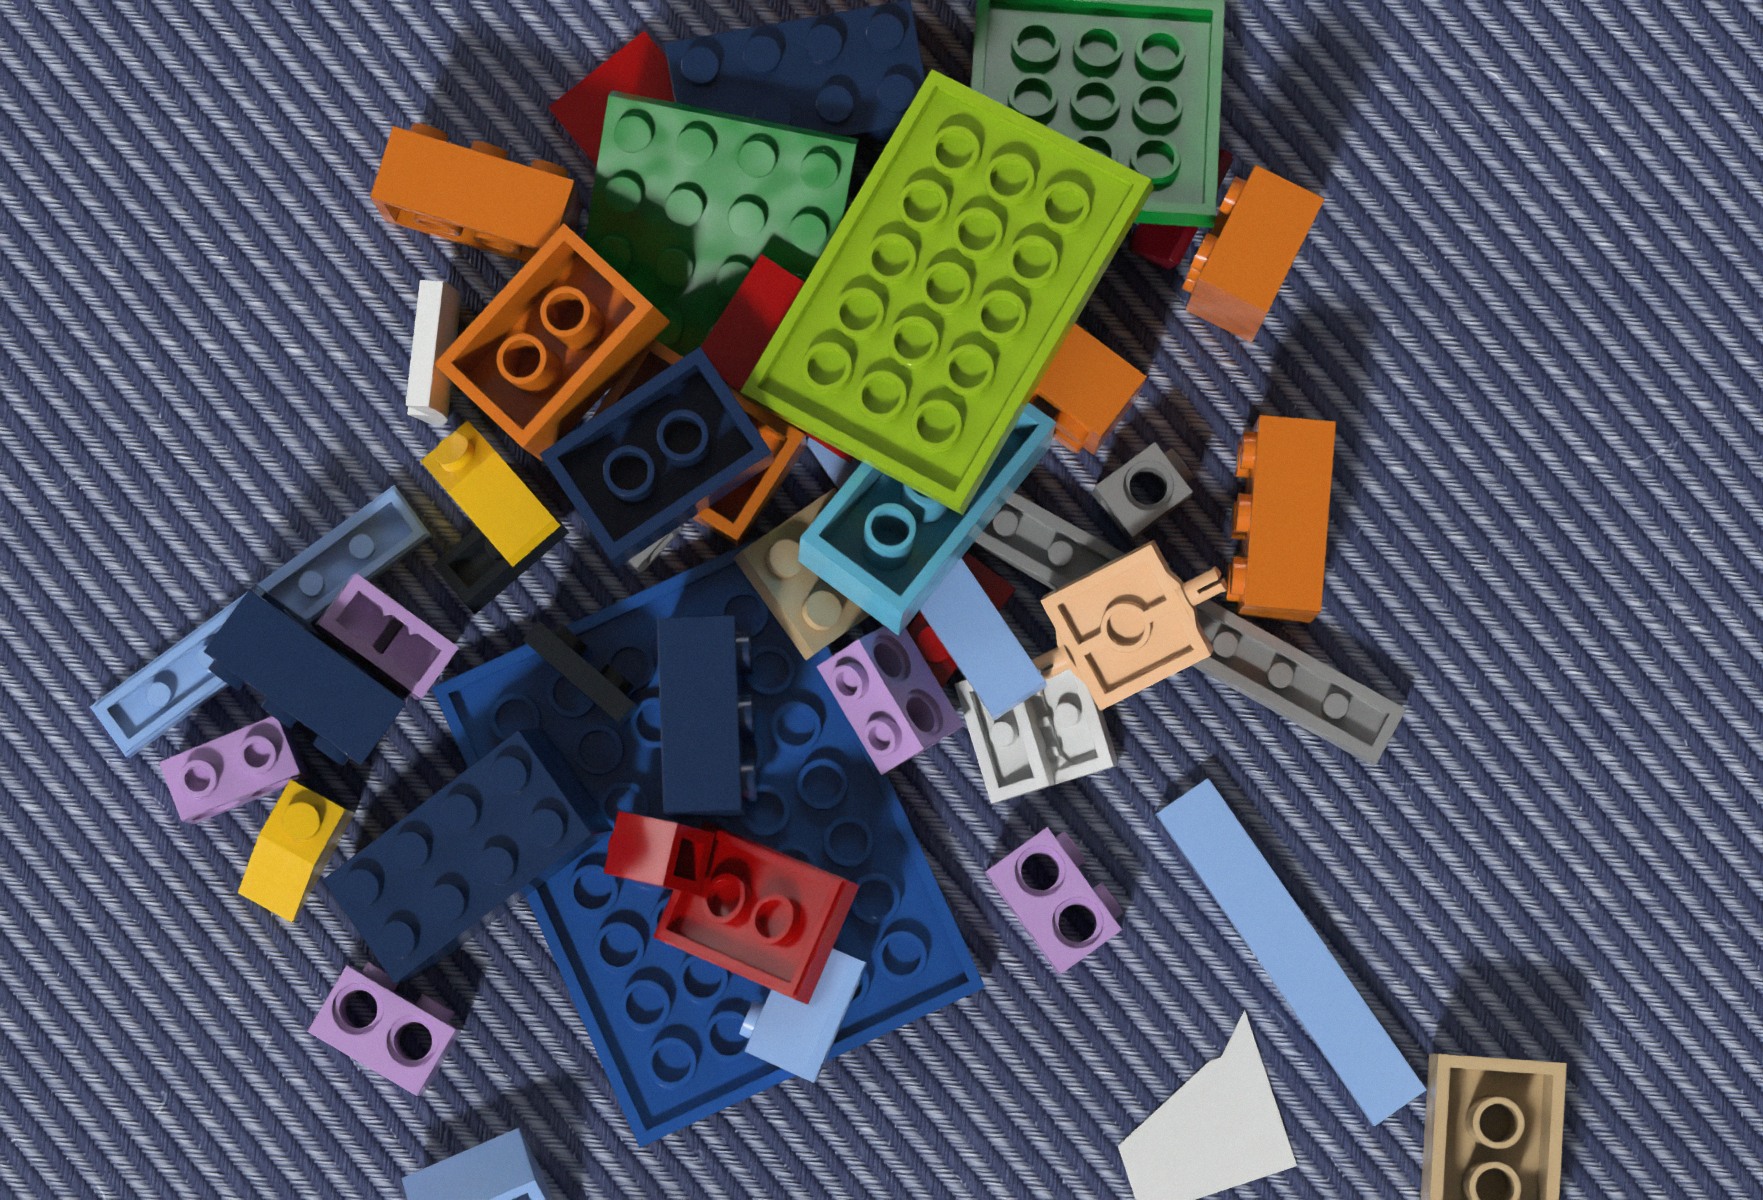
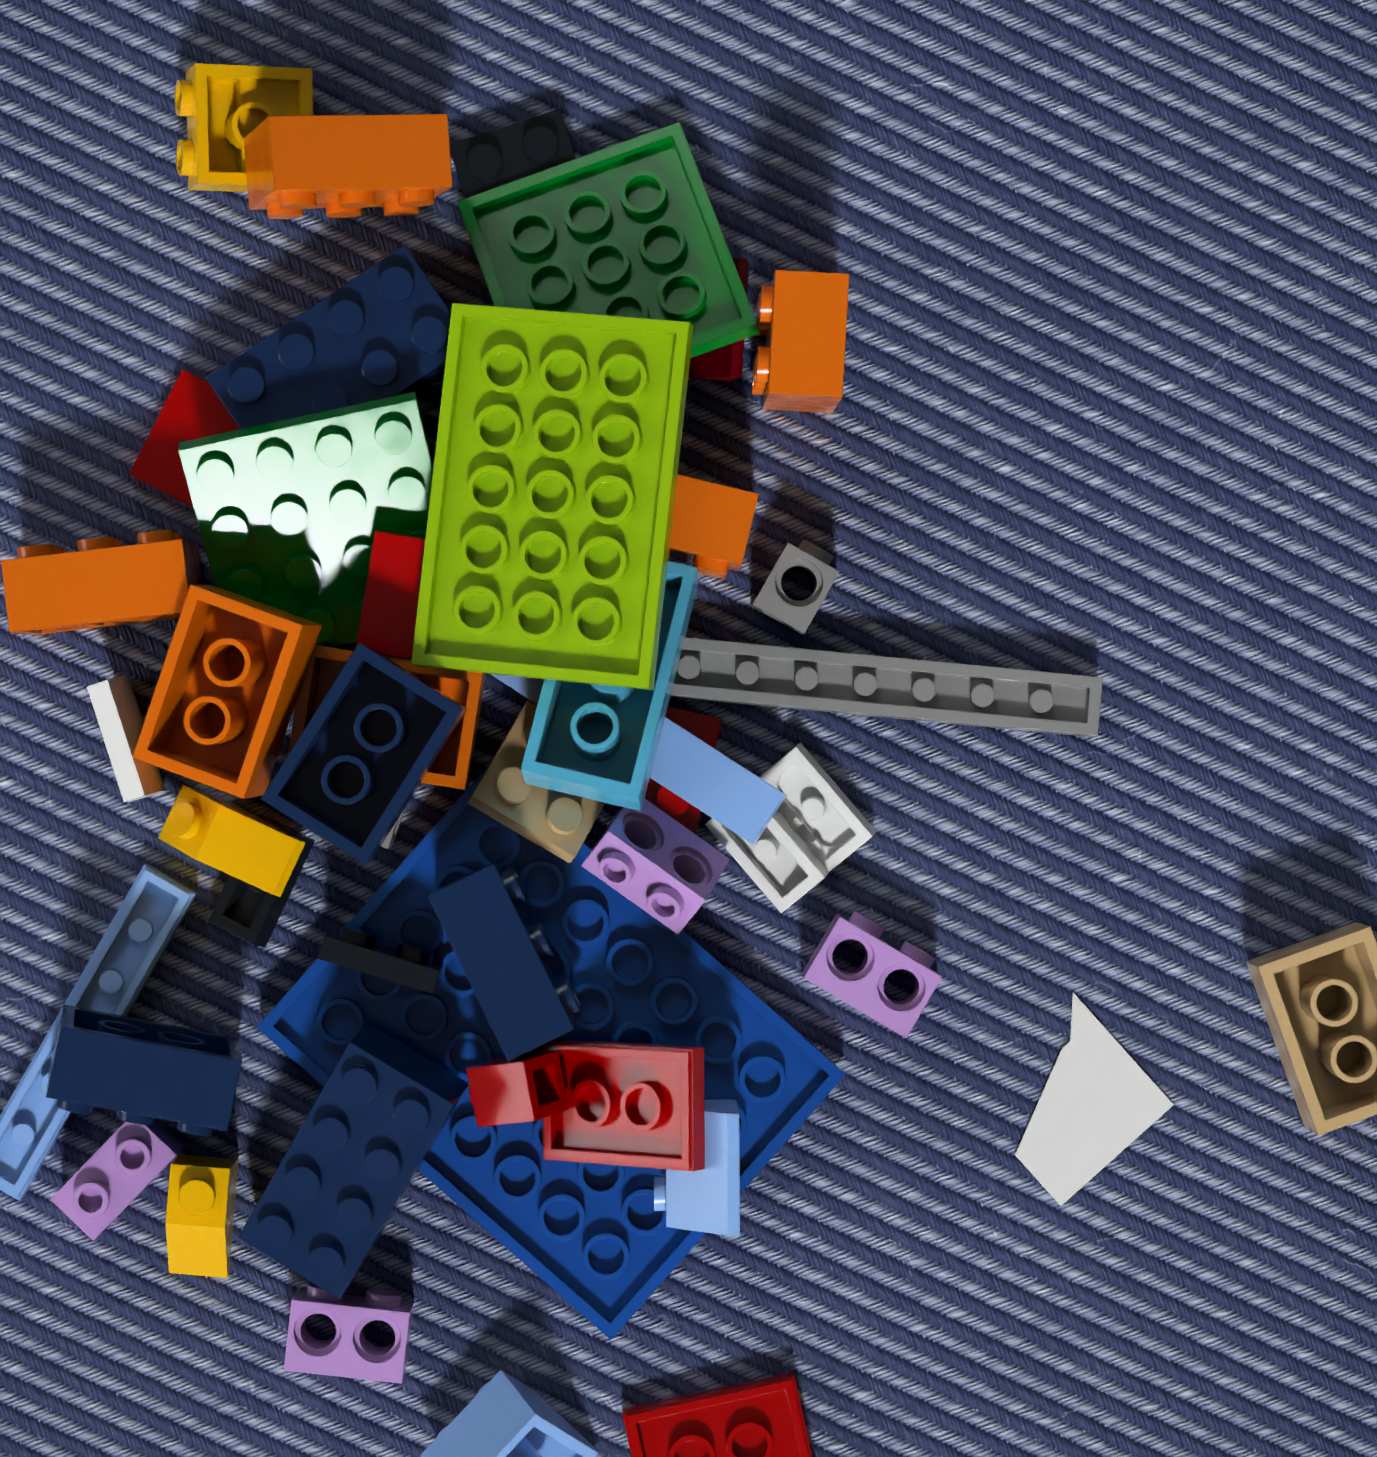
camera: 30 degrees left, 5 degrees up
(386, 636) = (197, 1003): lavender brick -> none
(1127, 624) = (833, 712): light nougat plate -> none
(1281, 519) = (927, 561): orange brick -> none
(1291, 952) = (1091, 926): light blue tile -> none

